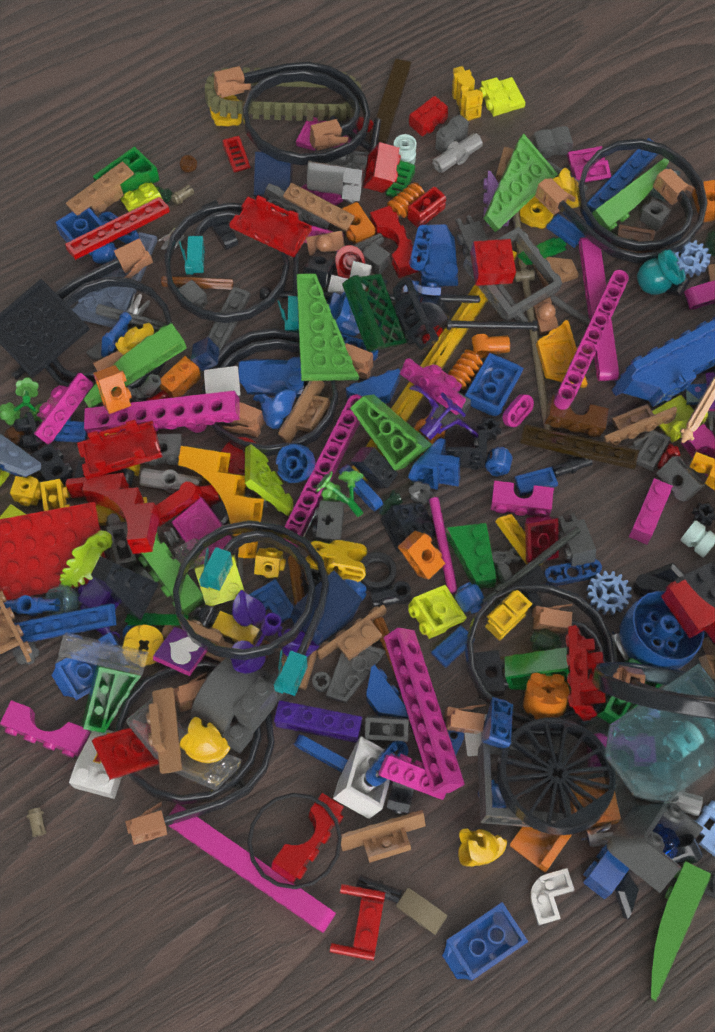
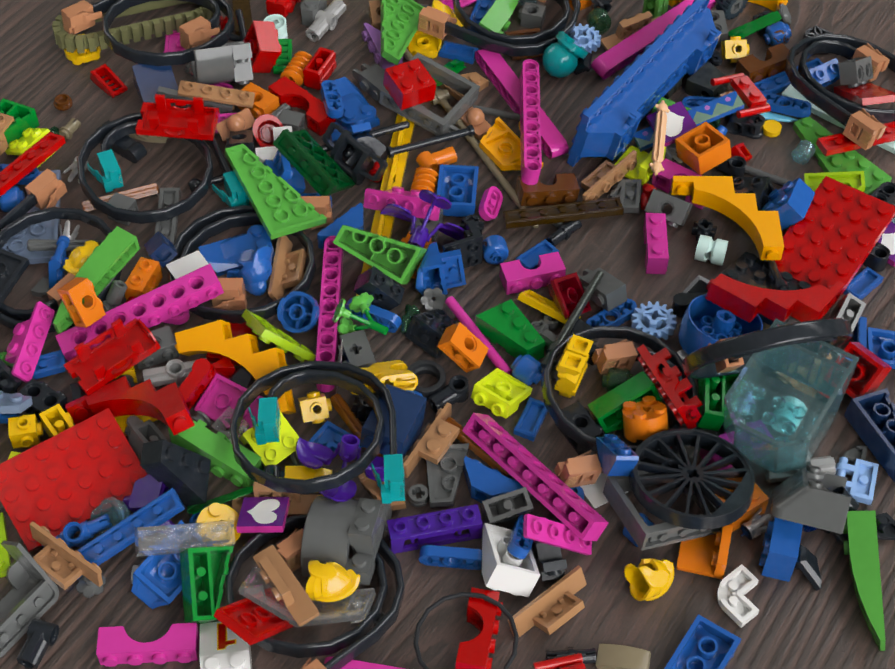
camera: 25 degrees left, 15 degrees down
(85, 559) = (123, 464): lime plant -> none

